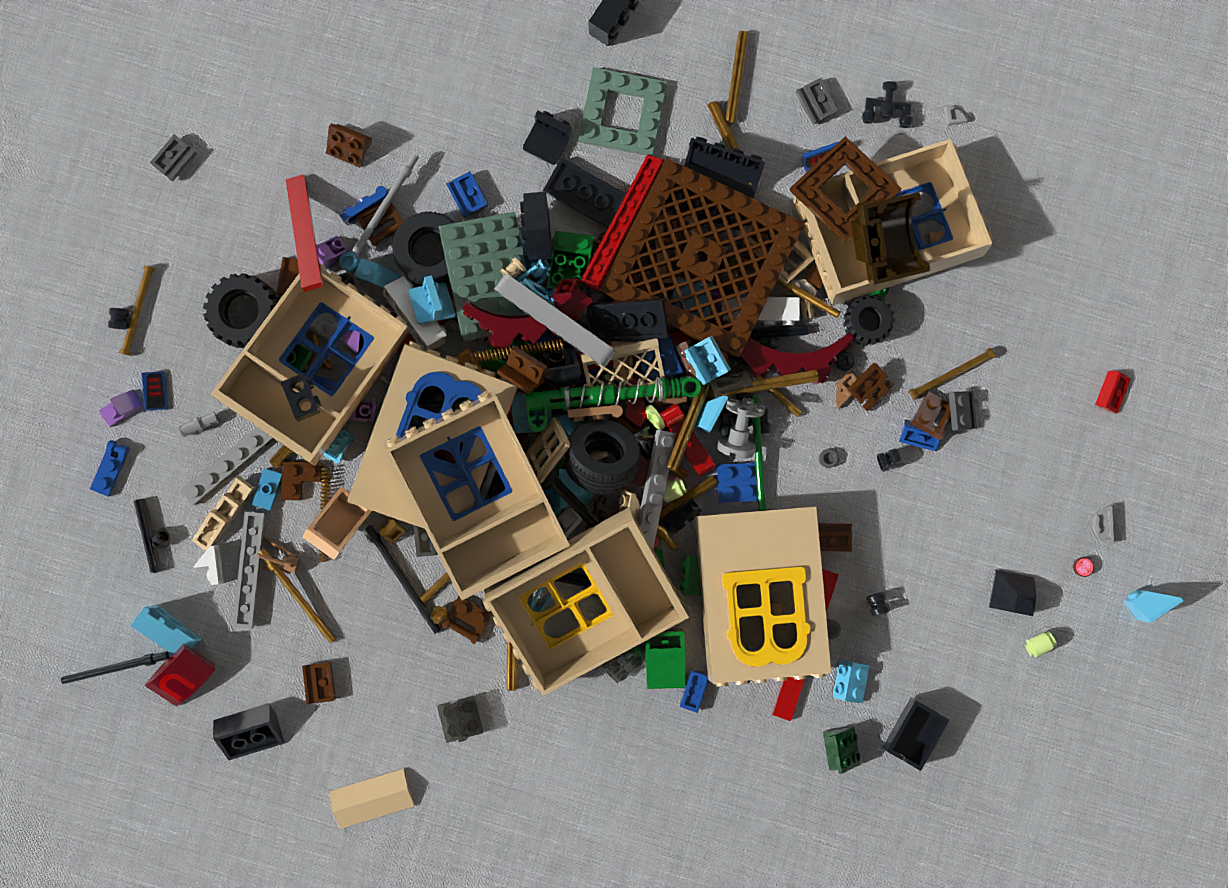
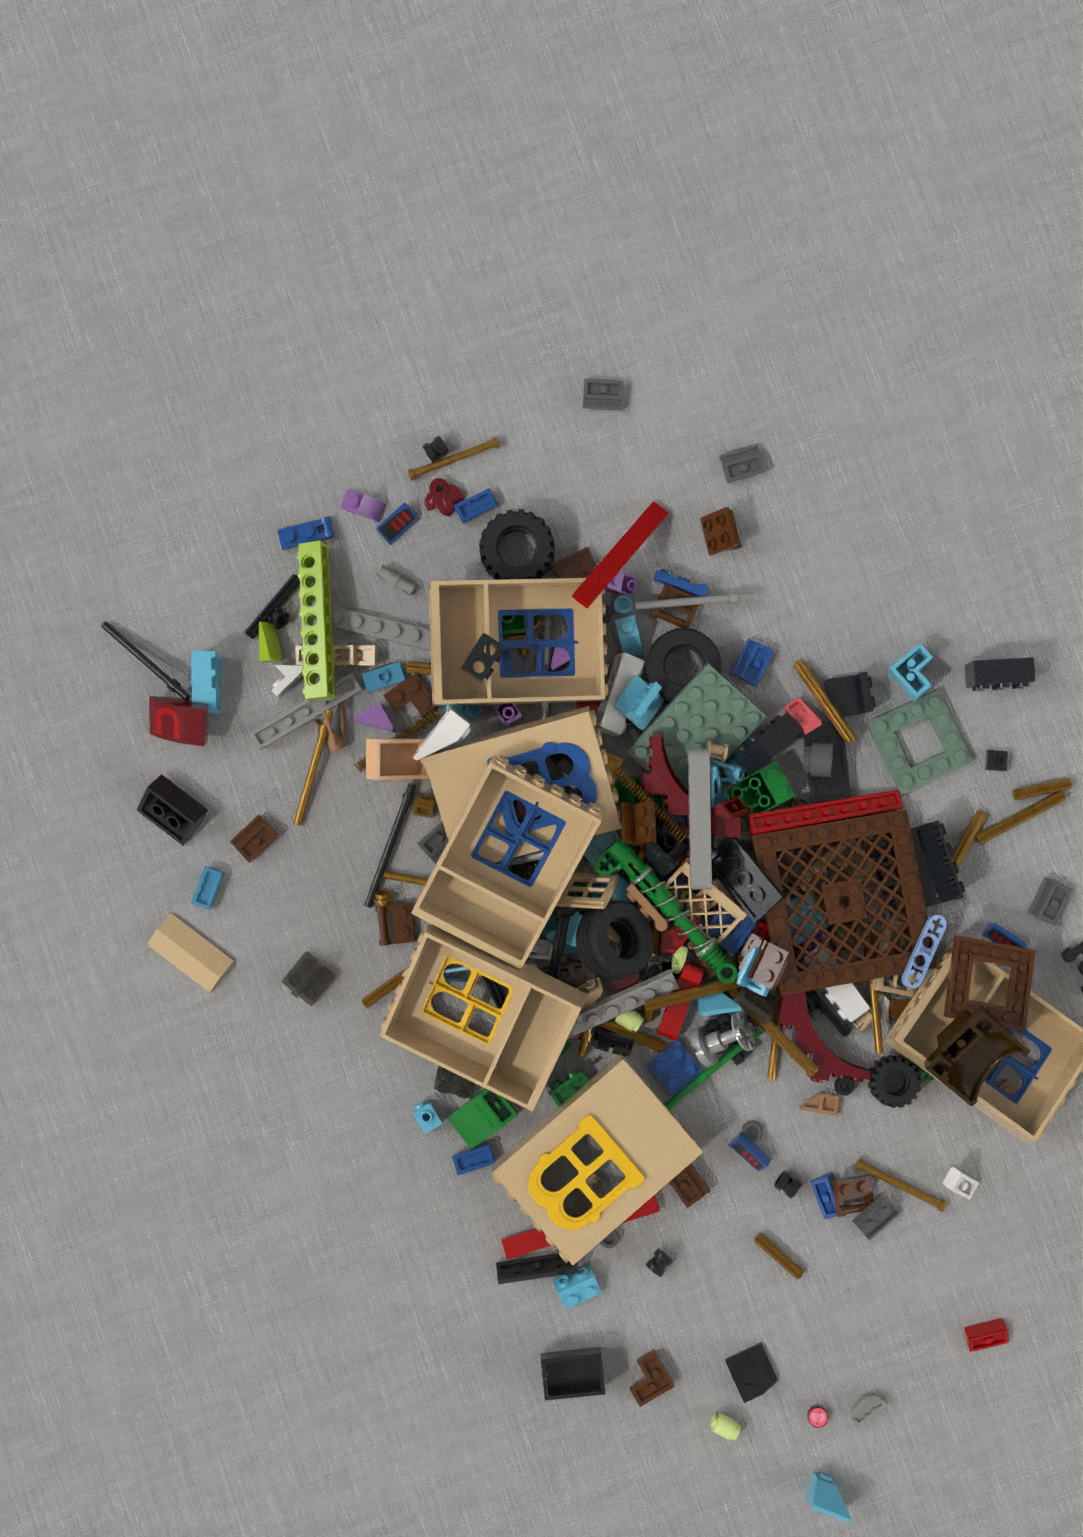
camera: 55 degrees right, 0 degrees up
(131, 470) = (320, 571): none -> lime brick
(163, 340) = (442, 500): none -> dark red plate
(174, 560) = (269, 644): none -> lime slope
(186, 319) = (475, 506): none -> blue plate
(294, 518) = (376, 718): none -> medium lavender slope
(307, 90) = (742, 464): none -> dark grey plate
(330, 748) = (207, 888): none -> dark azure plate
(341, 470) = (446, 732): none -> white slope
(536, 183) = (803, 715): none -> coral plate
(538, 160) = (824, 701): none -> pearl gold axle
(561, 79) = (907, 672): none -> medium azure brick
(578, 196) = (818, 759): none -> dark grey piece
(634, 703) = (427, 1116): none -> medium azure brick
(680, 63) = (996, 760): none -> black tile
(707, 348) = (769, 965): none -> plate
(727, 45) = (1041, 789): none -> pearl gold axle
(788, 221) = (927, 953): none -> light blue beam
(812, 705) = (533, 1268): none -> black plate
(842, 749) = (514, 1320): dark green bracket -> none
(843, 471) = (750, 1152): none -> blue slope
(867, 383) = (839, 1119): reddish brown plate -> none
(939, 507) = (778, 1256): none -> pearl gold axle
(968, 673) = (656, 1380): none -> reddish brown plate
(983, 326) = (960, 1183): none -> white slope

